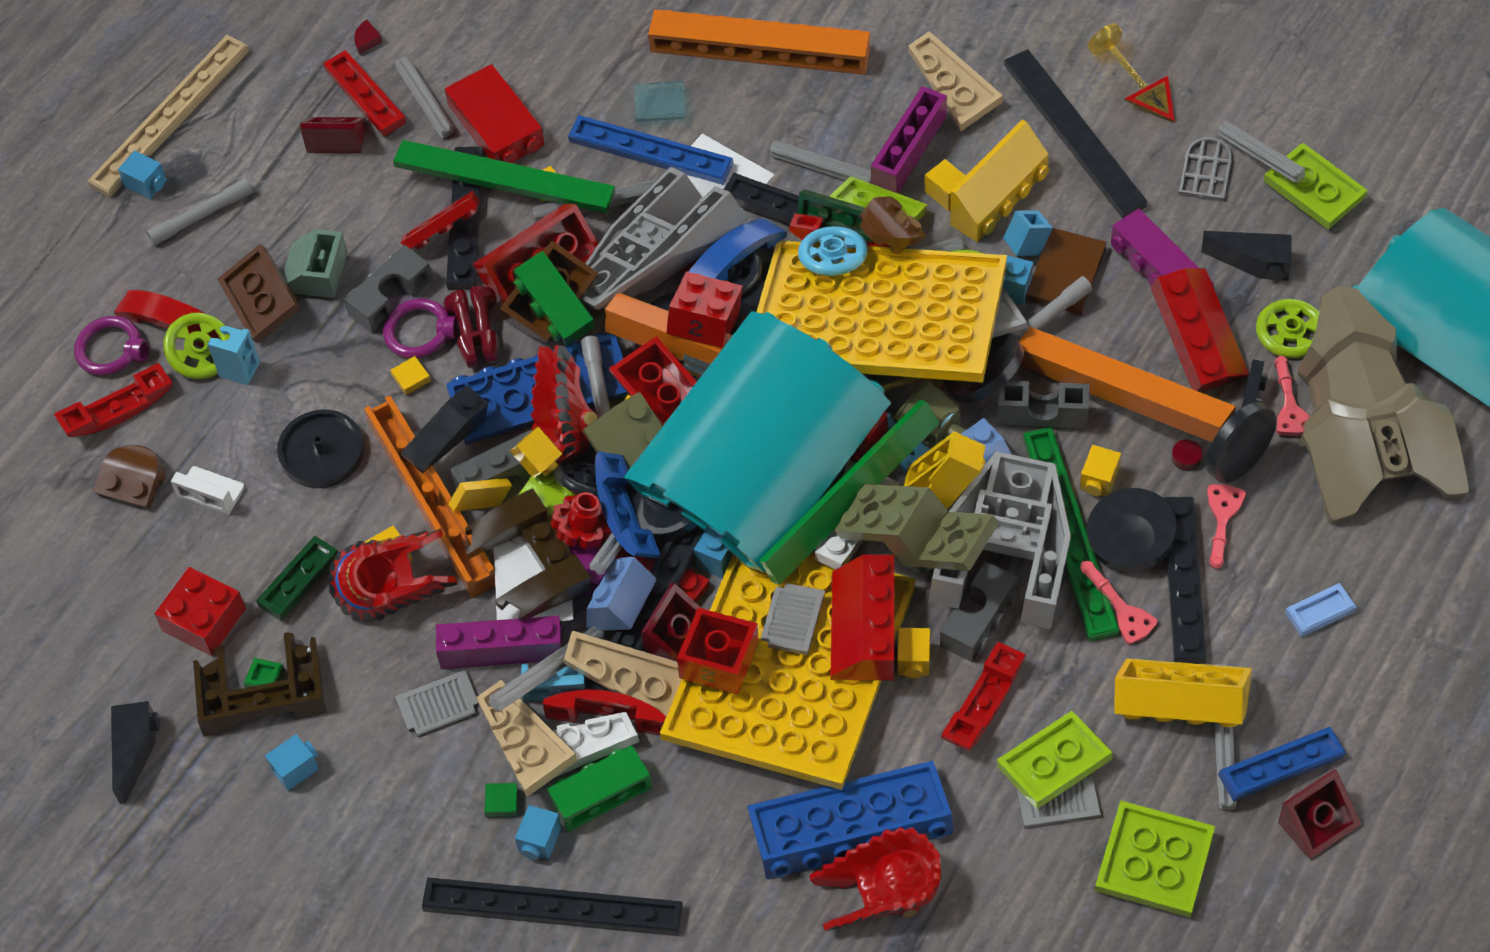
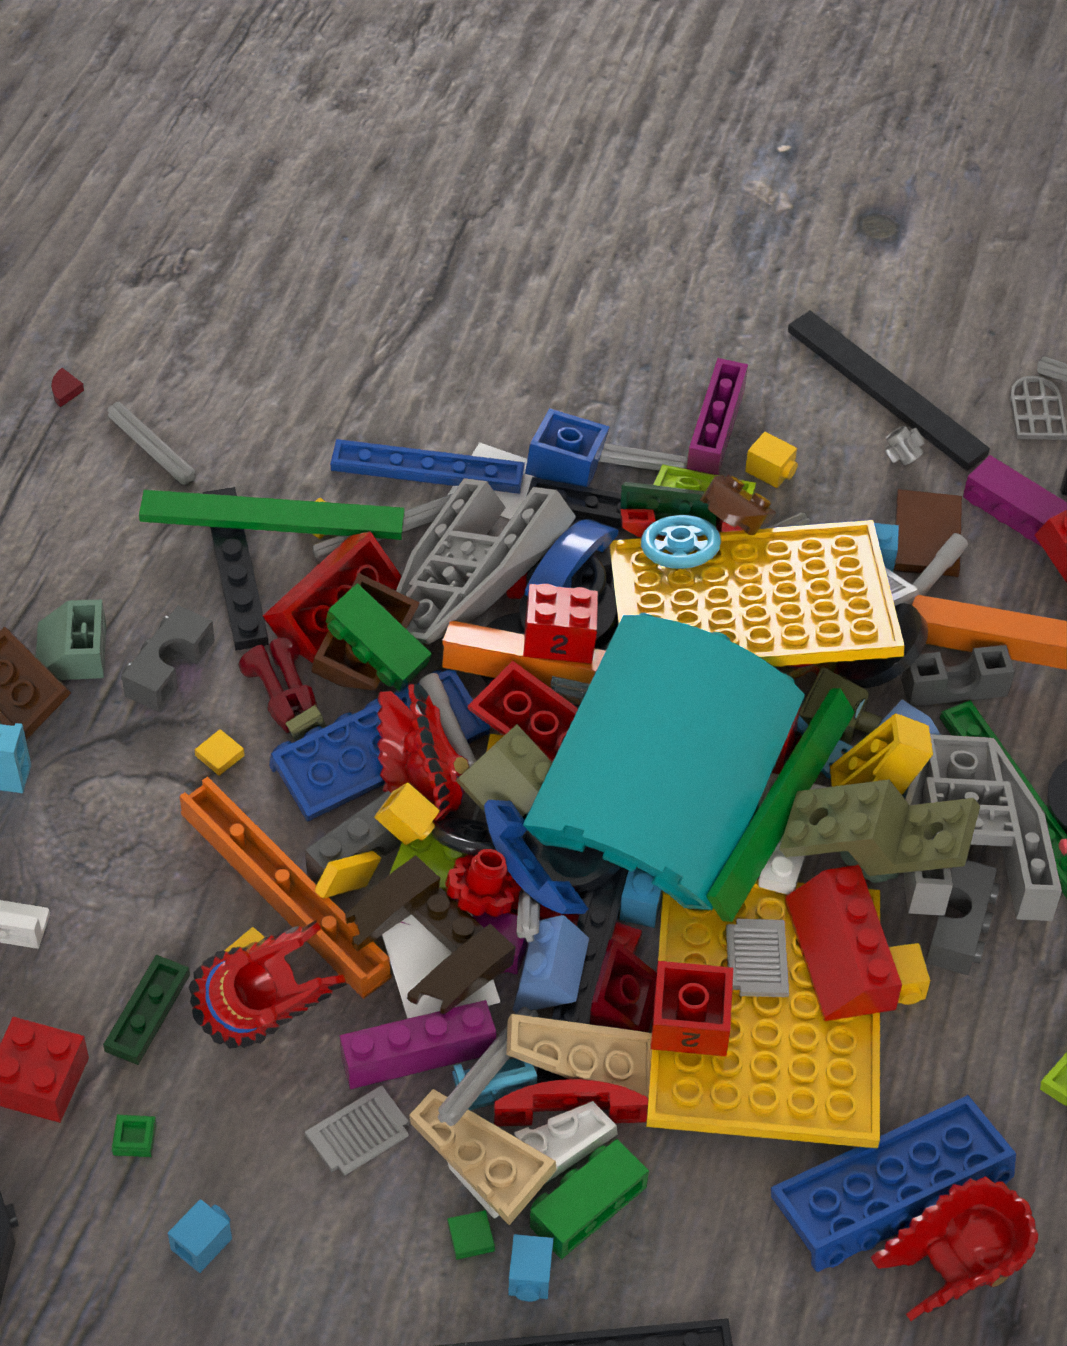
camera: 20 degrees left, 5 degrees down
(299, 693) = (93, 1184): dark brown wedge -> none
(320, 448) = (133, 852): black piece -> none
(333, 134) = (56, 497): dark red slope -> none
(364, 93) = (80, 447): red plate -> none
(441, 222) = (213, 573): red plate -> none
(446, 328) = (248, 691): magenta piece -> none
(446, 429) = (289, 804): black slope -> none
(481, 361) = (305, 722): none -> olive tile
(494, 115) = (240, 451): red brick -> none
(659, 101) = (423, 413): clear light blue piece -> none
(759, 41) = (517, 337): orange brick -> none
(768, 151) = (566, 449): none -> blue slope
(966, 91) = (721, 338): tan wing -> none
(985, 698) = (1000, 1011): red slope -> none
(998, 182) = (830, 449): yellow slope -> none
(1027, 233) = (878, 497): dark azure brick -> none
(1069, 188) = (904, 445): none -> light grey gear
(1100, 471) = (1041, 739): yellow brick -> none
(1153, 97) = (955, 343): clear yellow piece -> none

